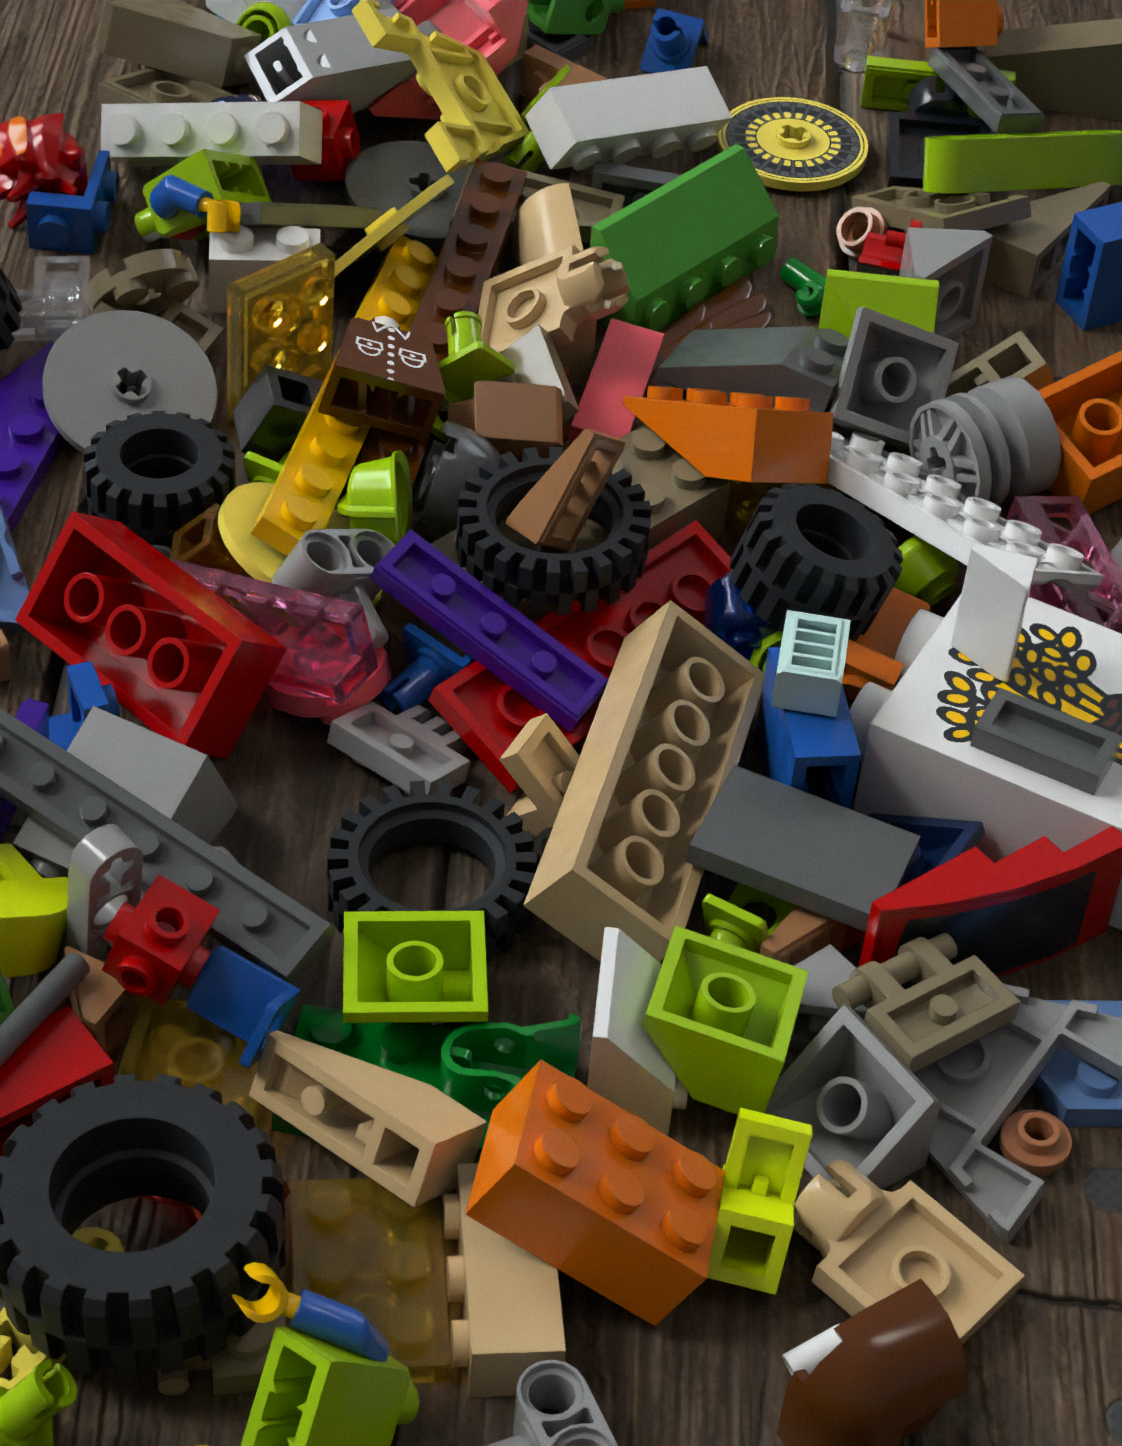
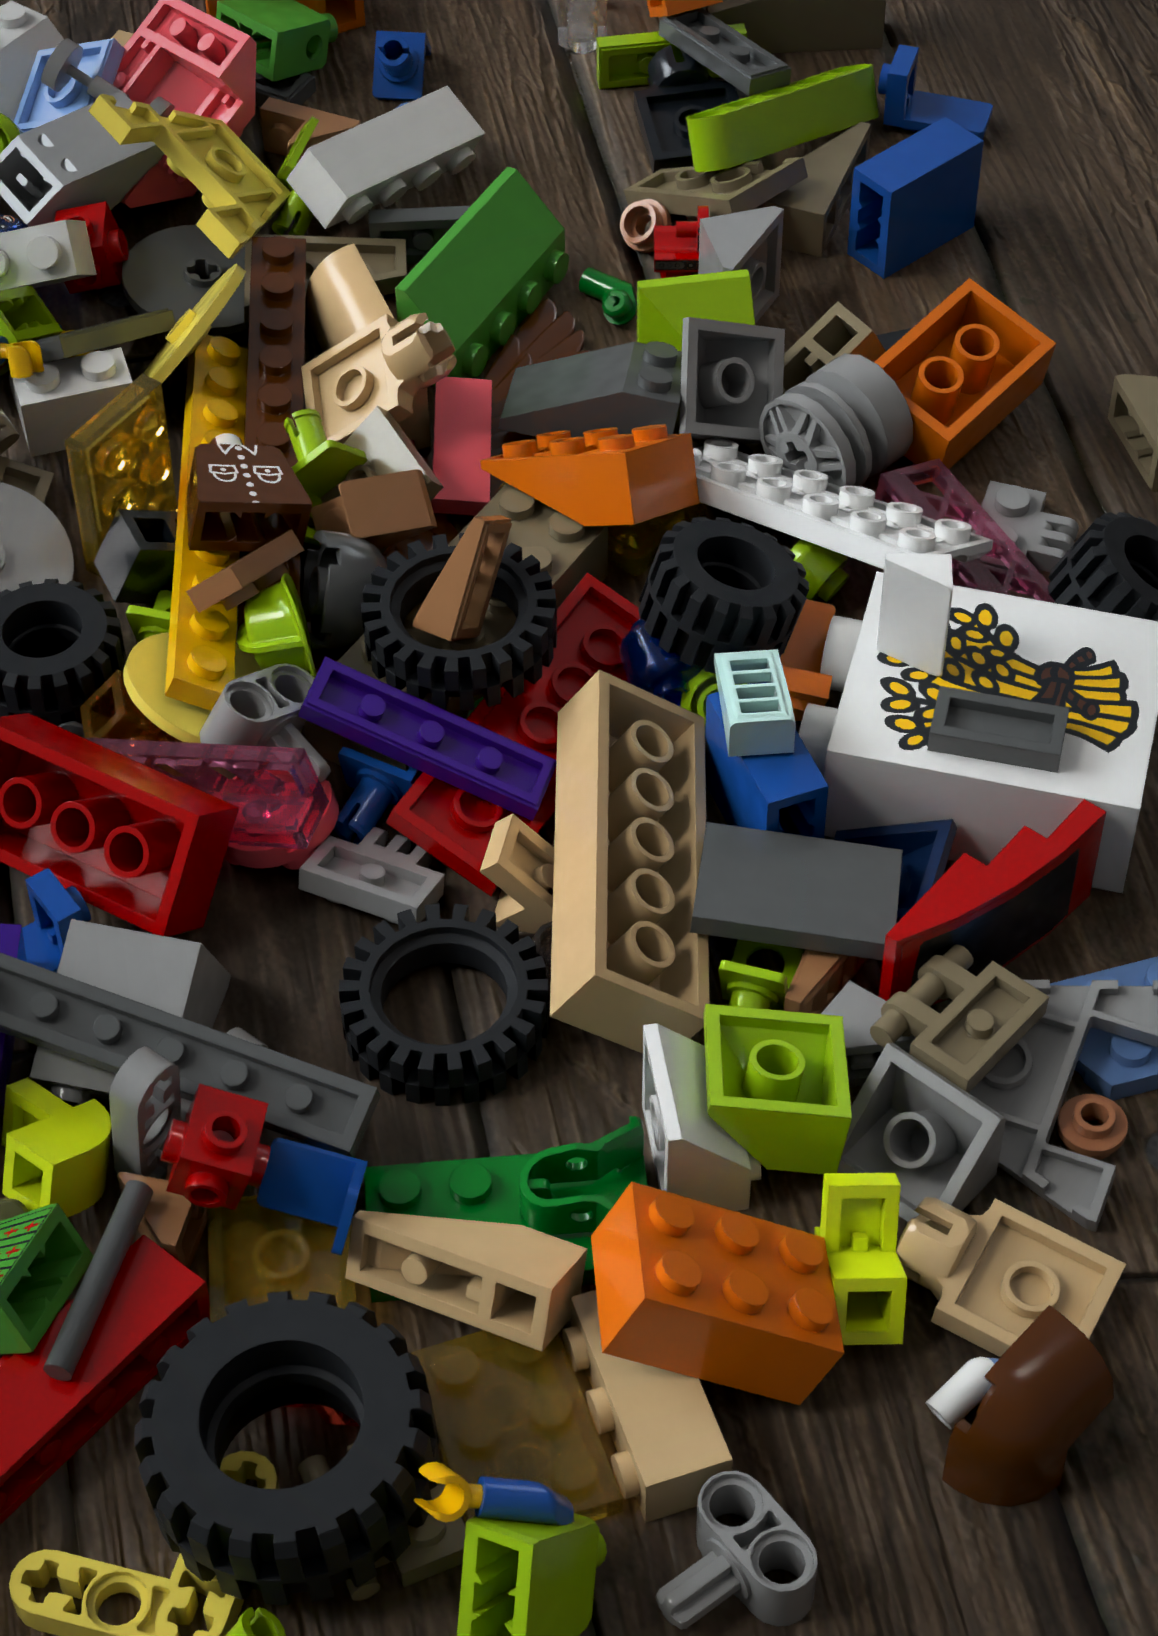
camera: 10 degrees left, 5 degrees up
(354, 442) = (247, 575): none -> medium nougat plate
(414, 967) = (468, 1108): lime slope -> none
(797, 142) = (552, 141): piece -> none

